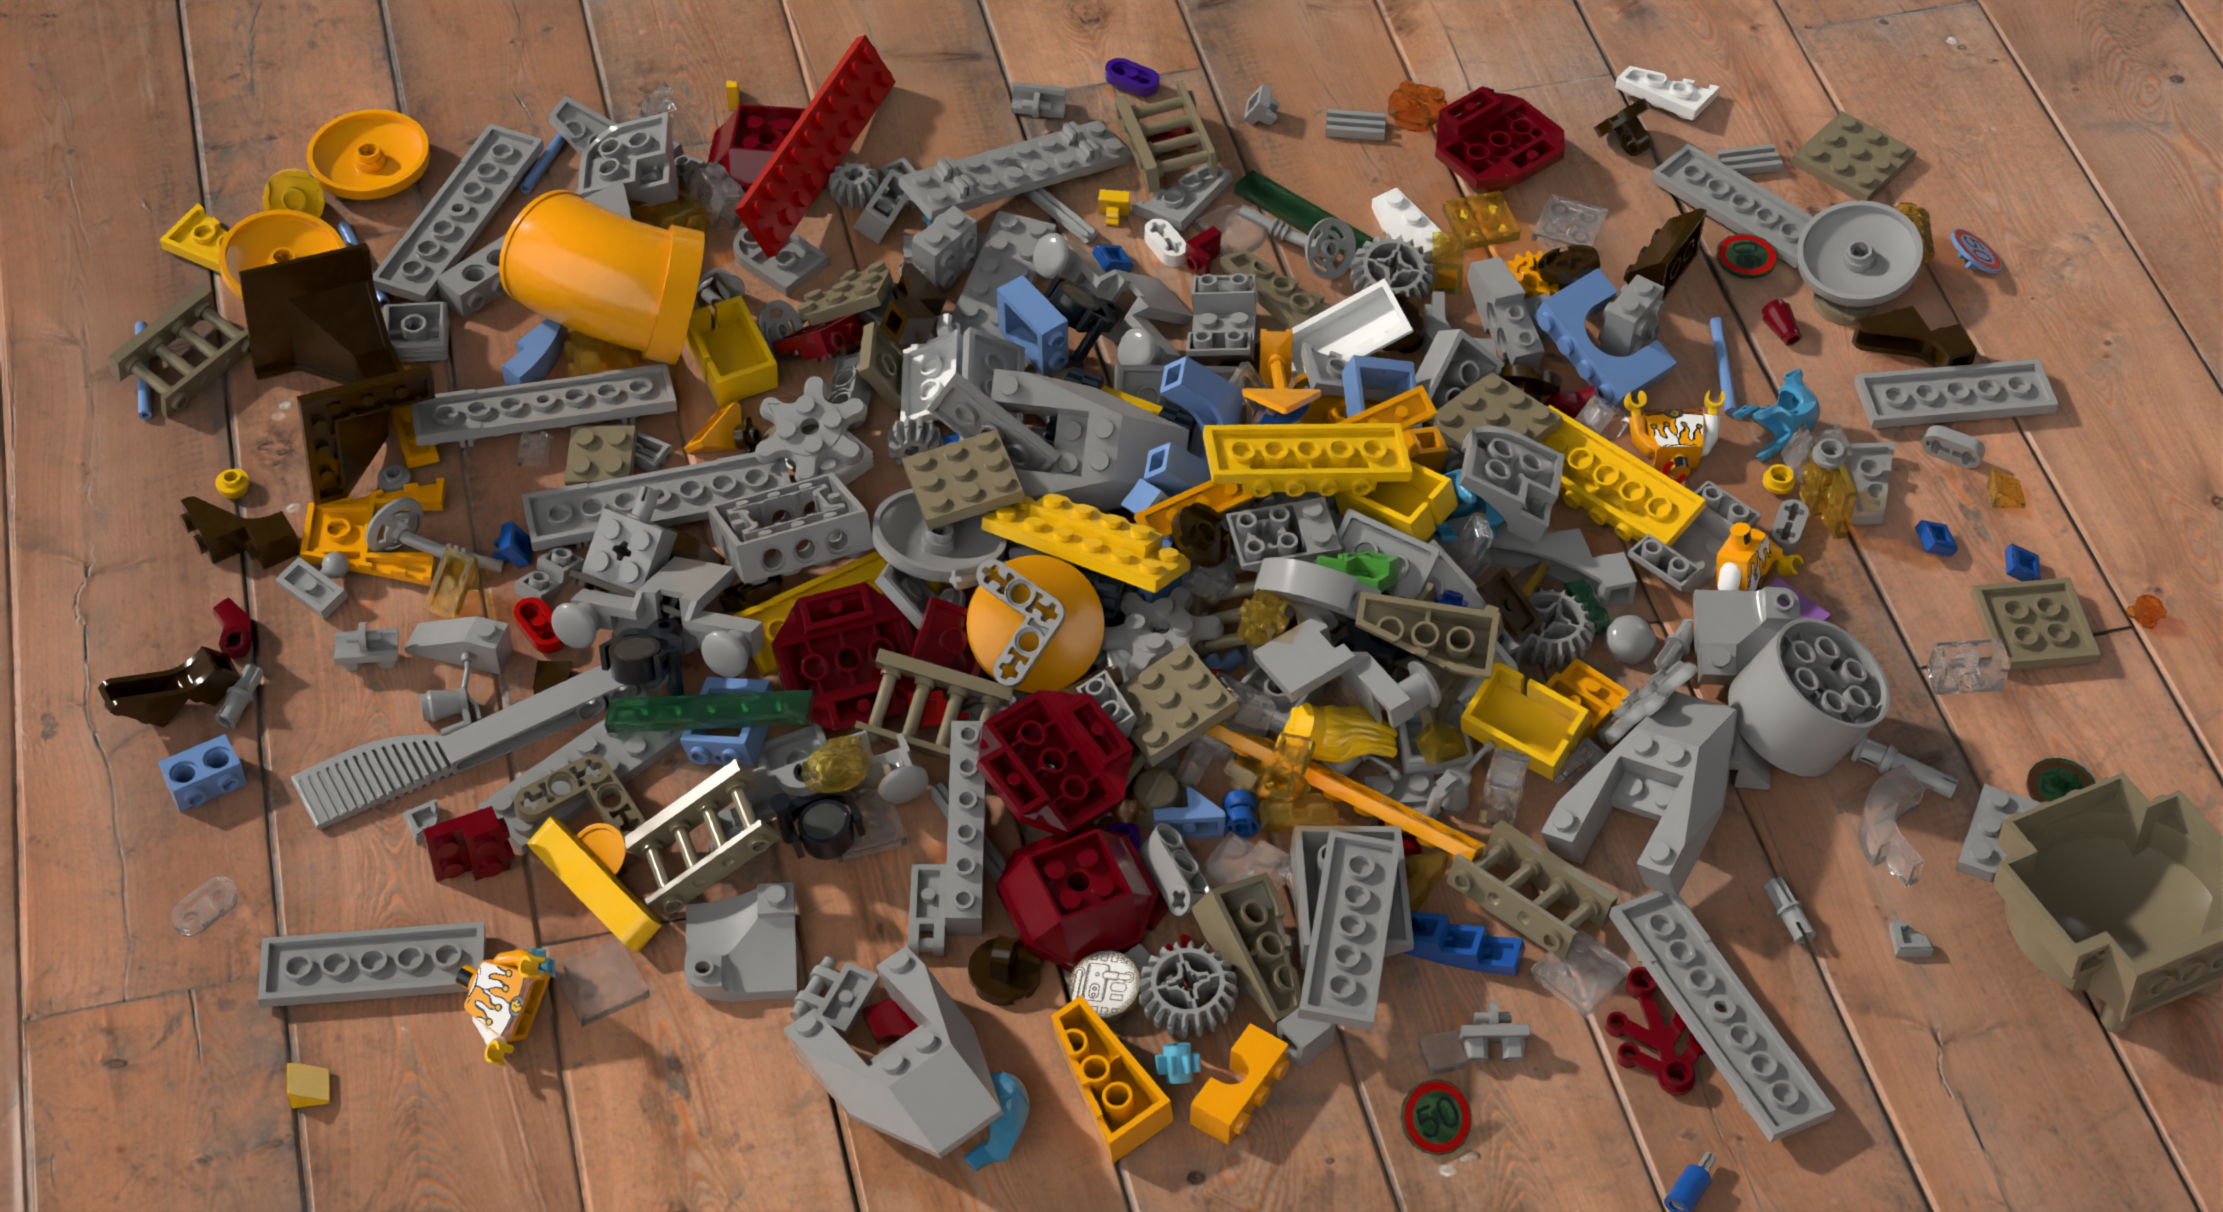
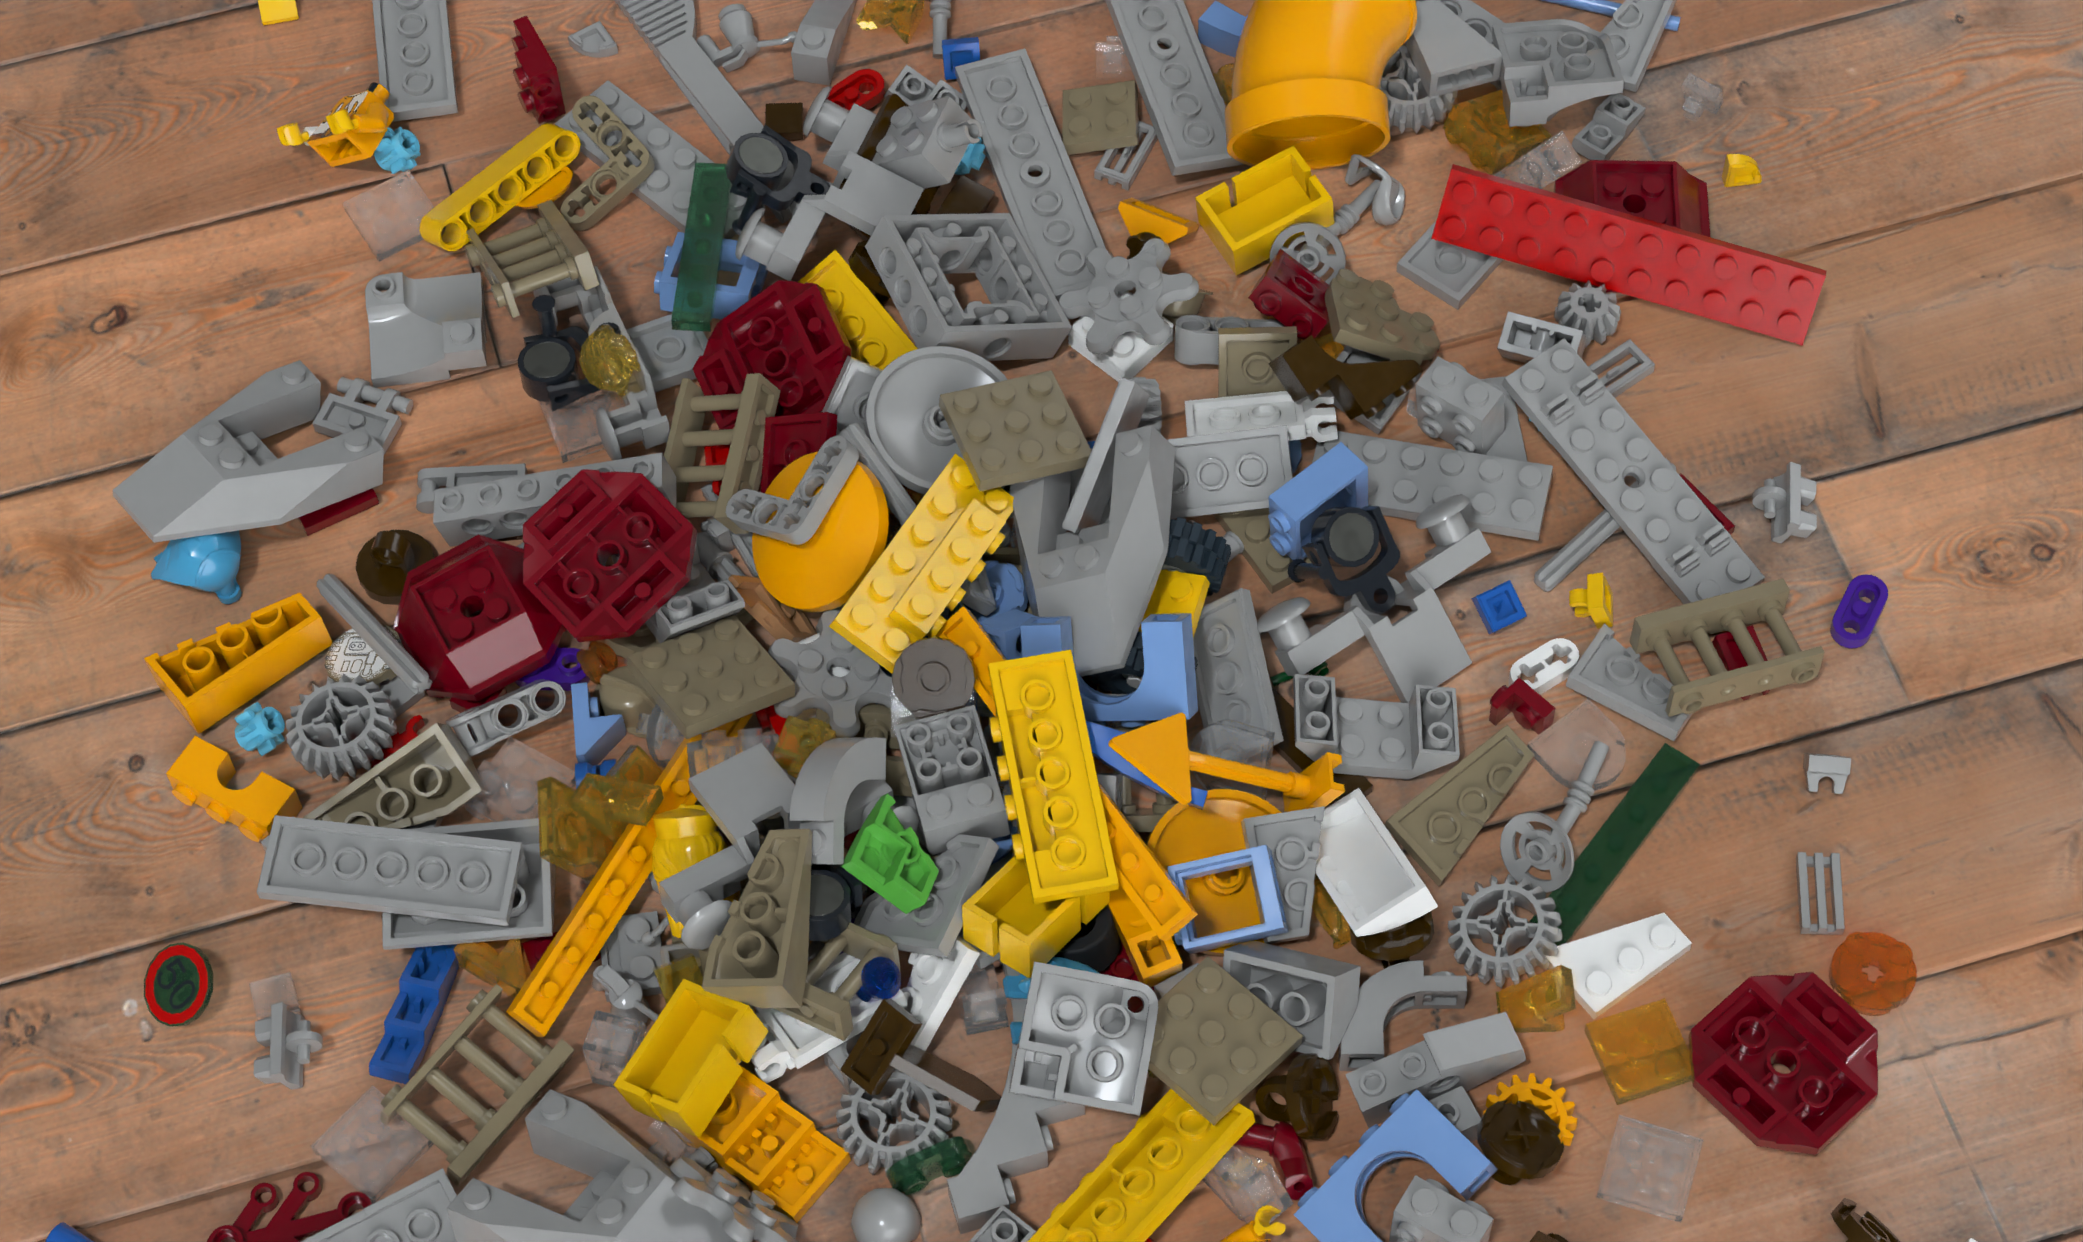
camera: 90 degrees right, 10 degrees up
(1088, 970) = (374, 634): none -> light grey axle

